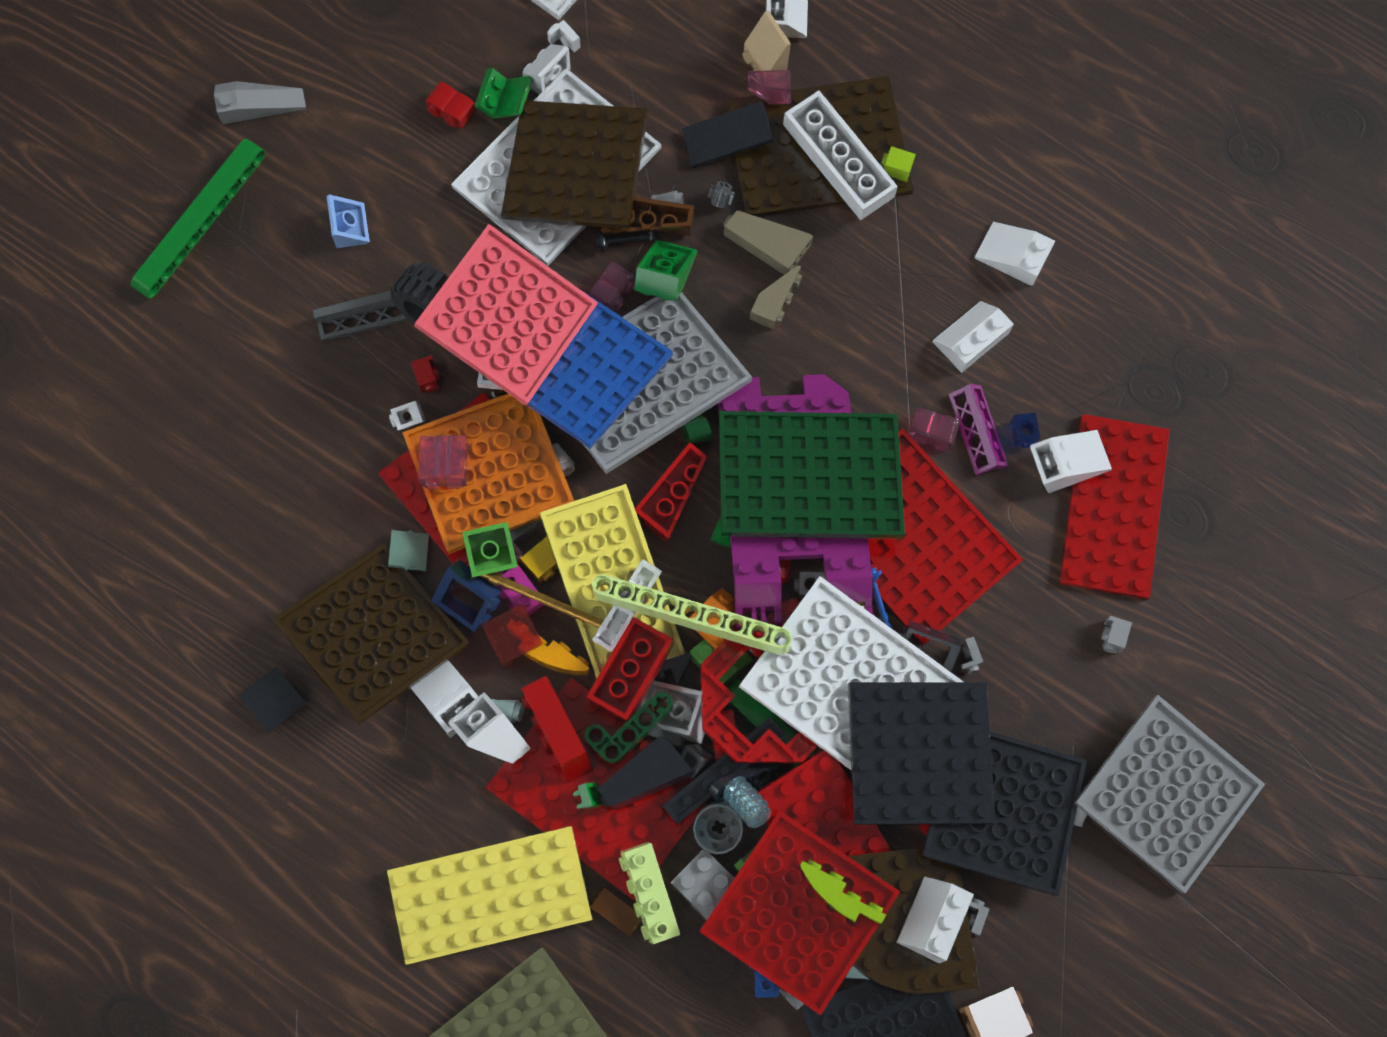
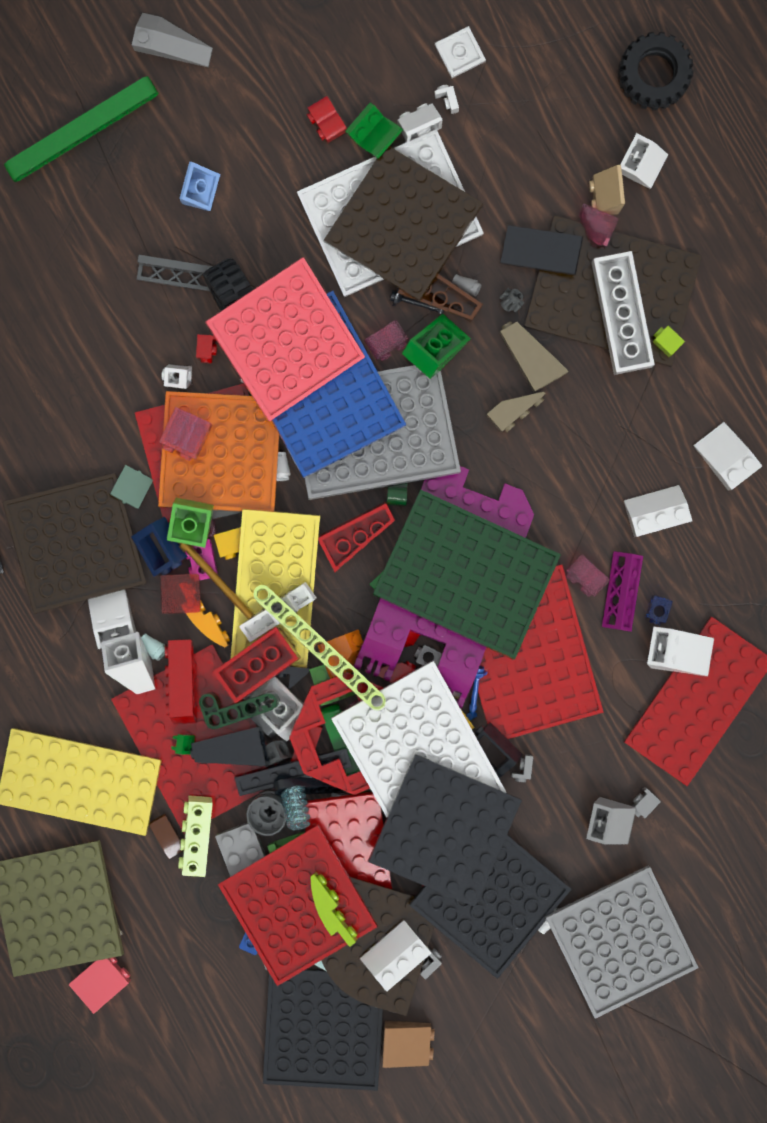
camera: 30 degrees right, 15 degrees up
(1092, 668) = (611, 822): none -> light grey slope

